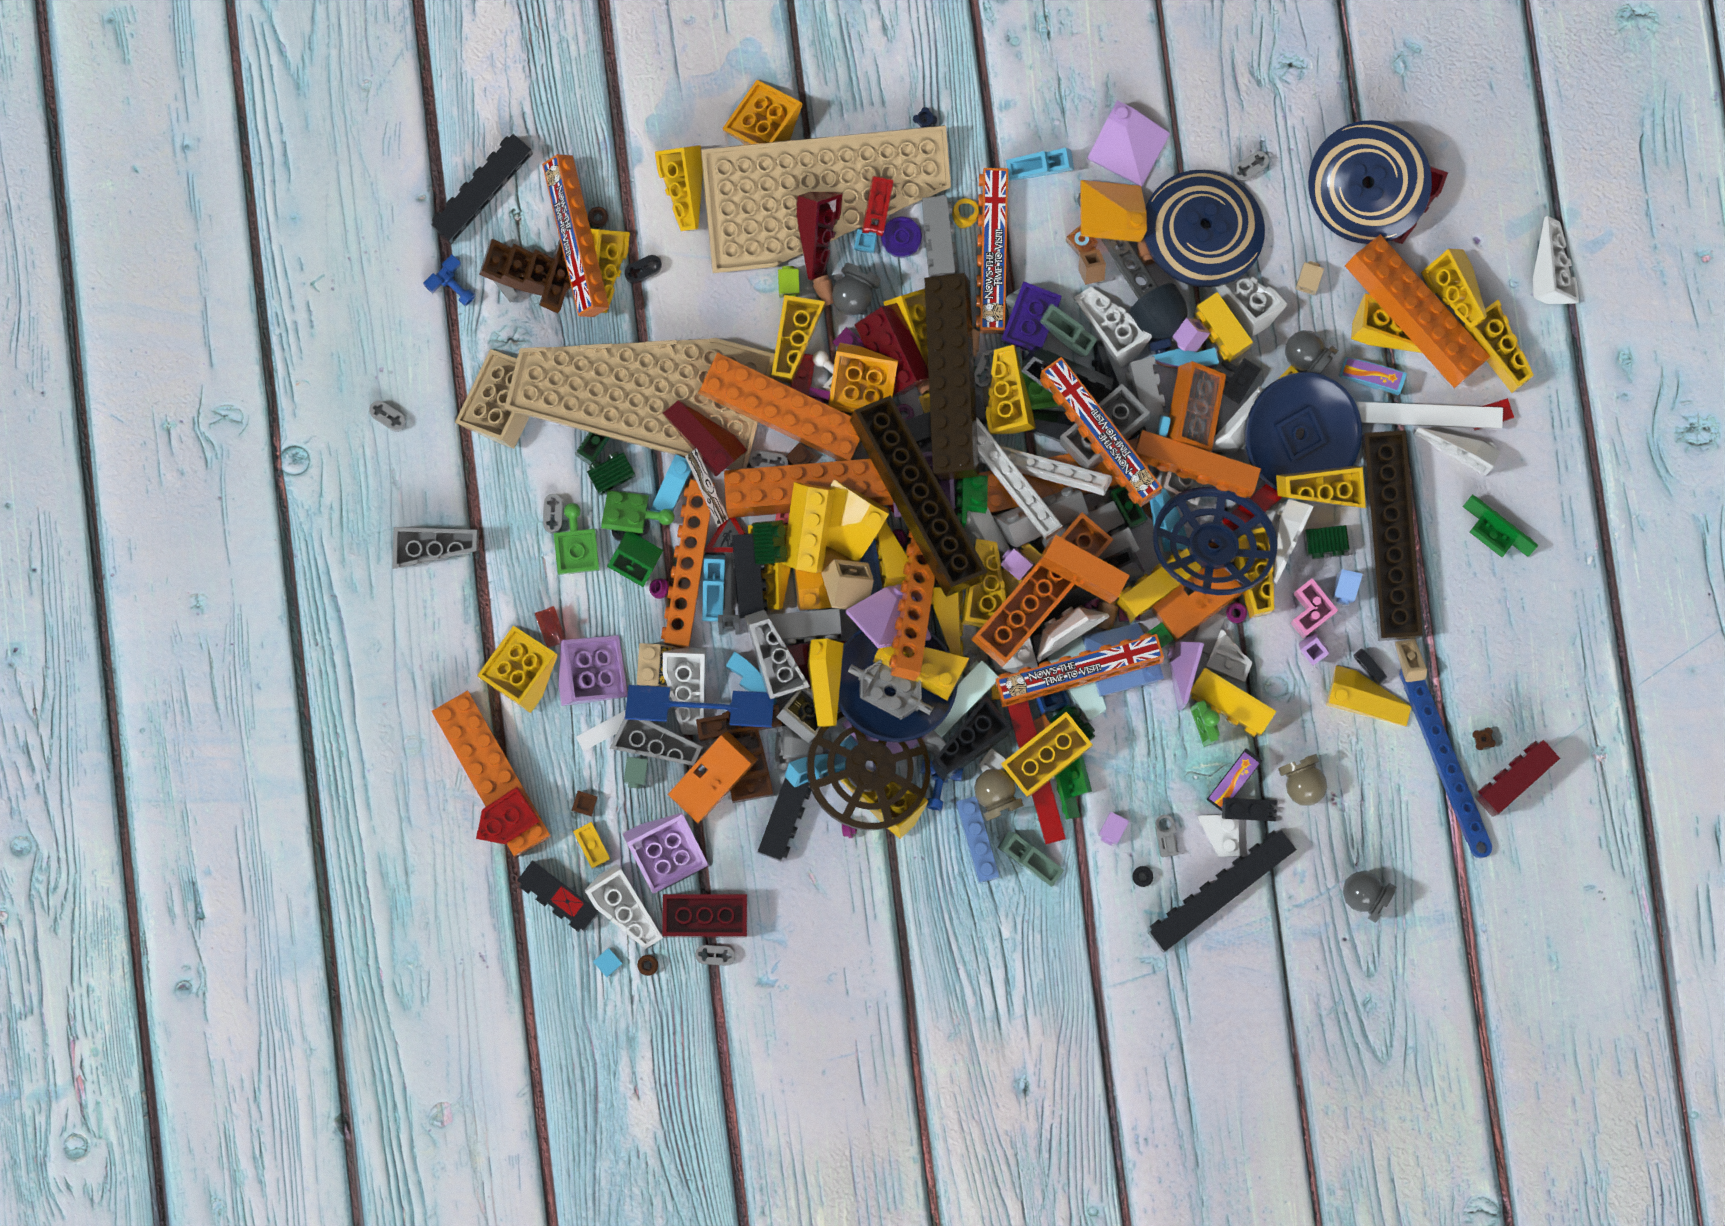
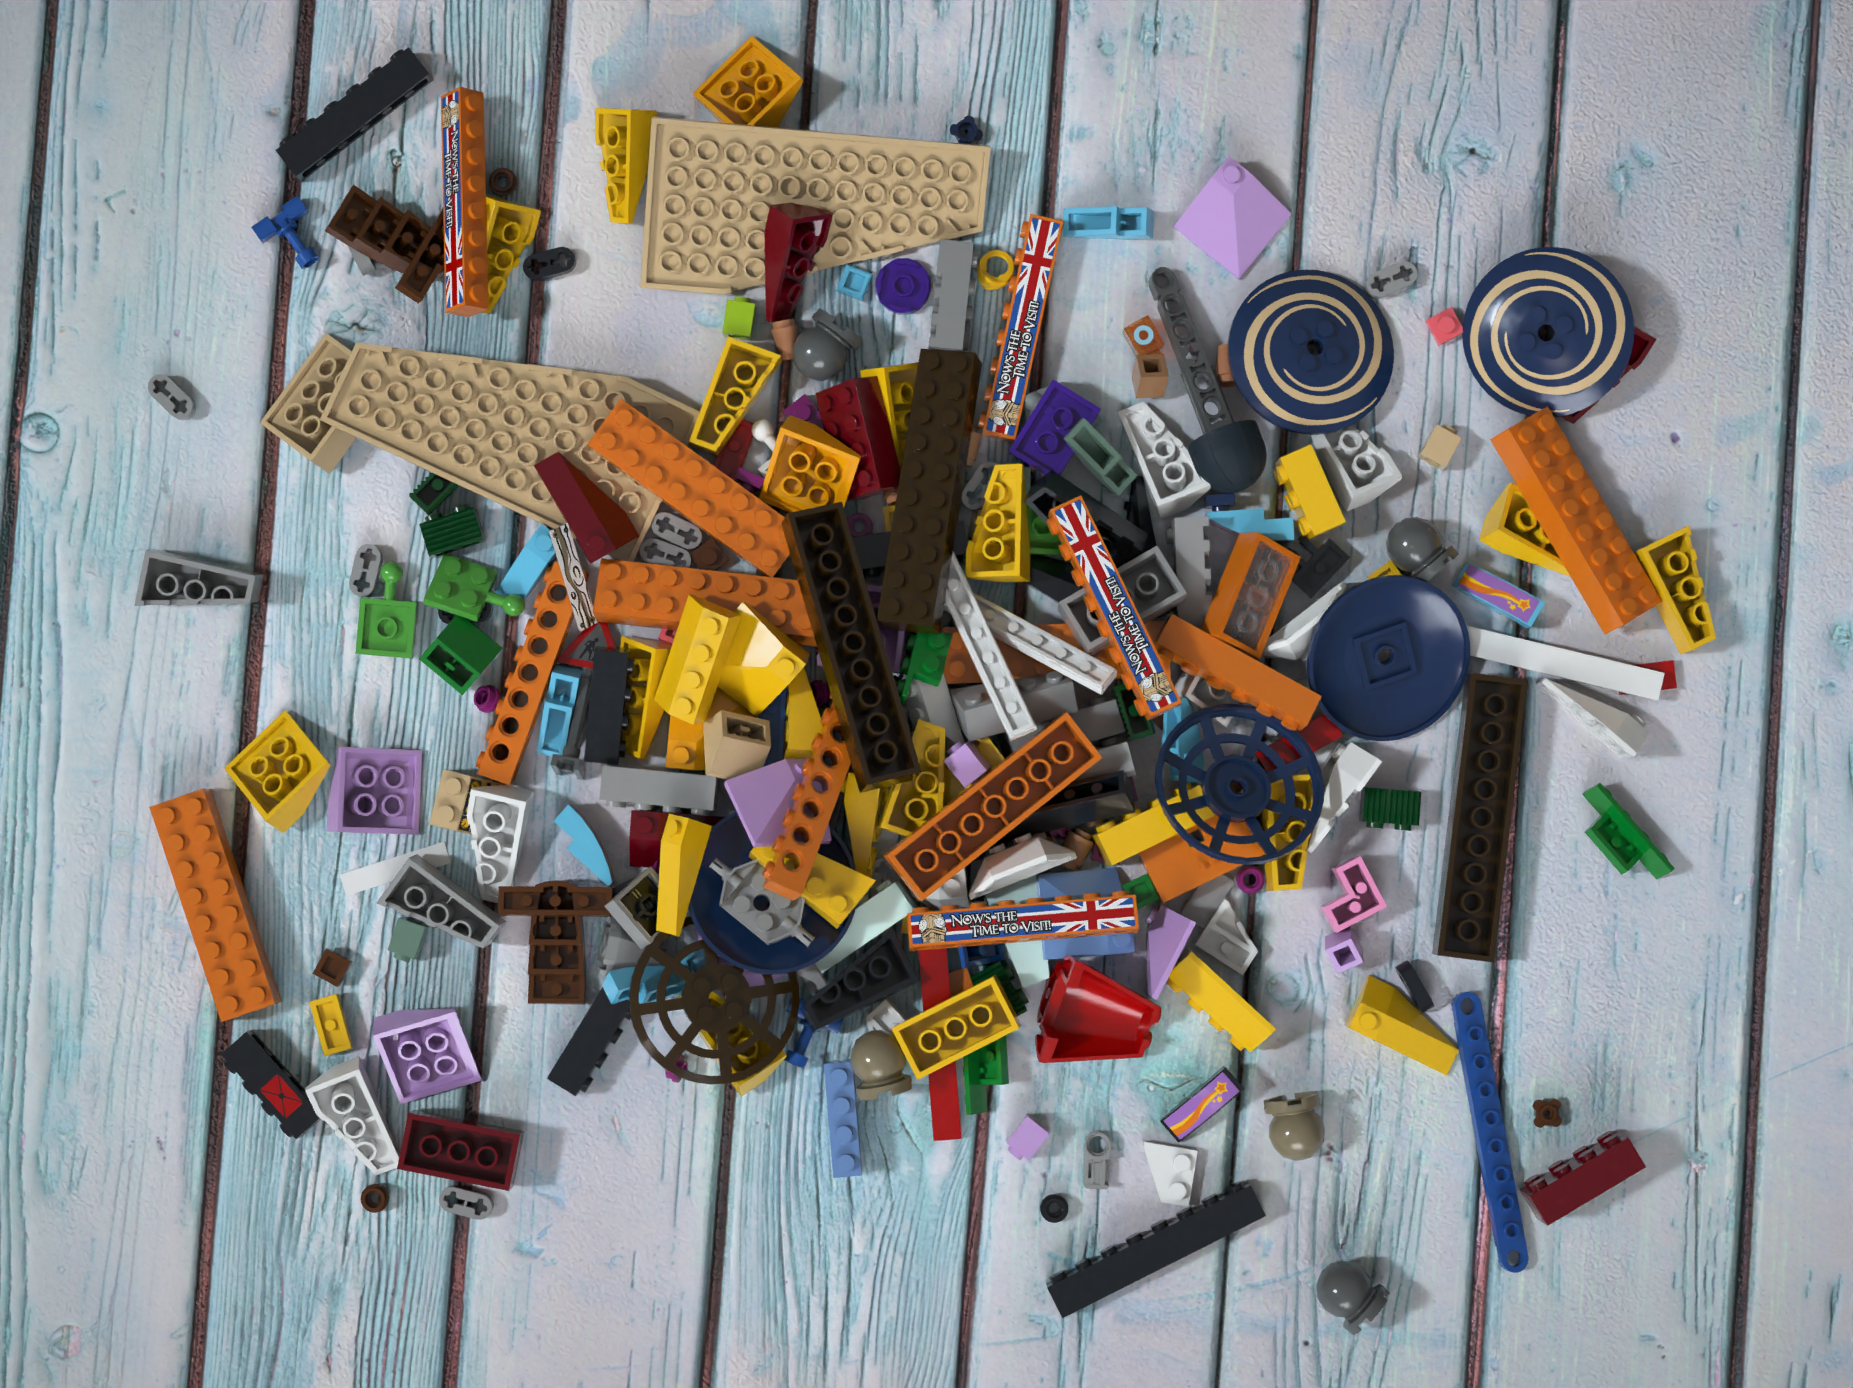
camera: 20 degrees right, 5 degrees up
(506, 818) = (219, 971): red tile -> none
(550, 627) = (331, 723): clear red hips -> none
(607, 962) = (322, 1184): medium azure tile -> none
(653, 703) = (567, 888): blue hinge -> none
(712, 777) = (505, 968): orange brick -> none
(769, 542) = (640, 668): dark green brick -> none
(774, 437) = (679, 524): none -> light grey beam
(774, 660) = (616, 830): light grey wedge -> none
(877, 205) = (878, 237): red plate -> none
(1030, 858) = (909, 1156): sand green slope -> none
(1083, 569) = (1051, 794): orange brick -> none
(1112, 211) = (1192, 305): light orange slope -> none
(1142, 730) = (1091, 1016): none -> red cone
(1163, 426) = (1201, 612): medium azure tile -> none
(1191, 335) = (1264, 495): lavender brick -> none
(1206, 722) = (1179, 1022): bright green plate -> none
(1248, 809) = (1213, 1147): black hinge -> none
(1295, 192) = (1444, 326): none -> coral plate
(1331, 486) = (1408, 735): yellow wedge -> none
(1346, 586) = (1404, 875): light blue slope -> none
(1411, 660) = (1471, 989): tan slope -> none
(1456, 284) = (1636, 492): yellow wedge -> none
(1552, 274) = (1767, 505): white wedge -> none

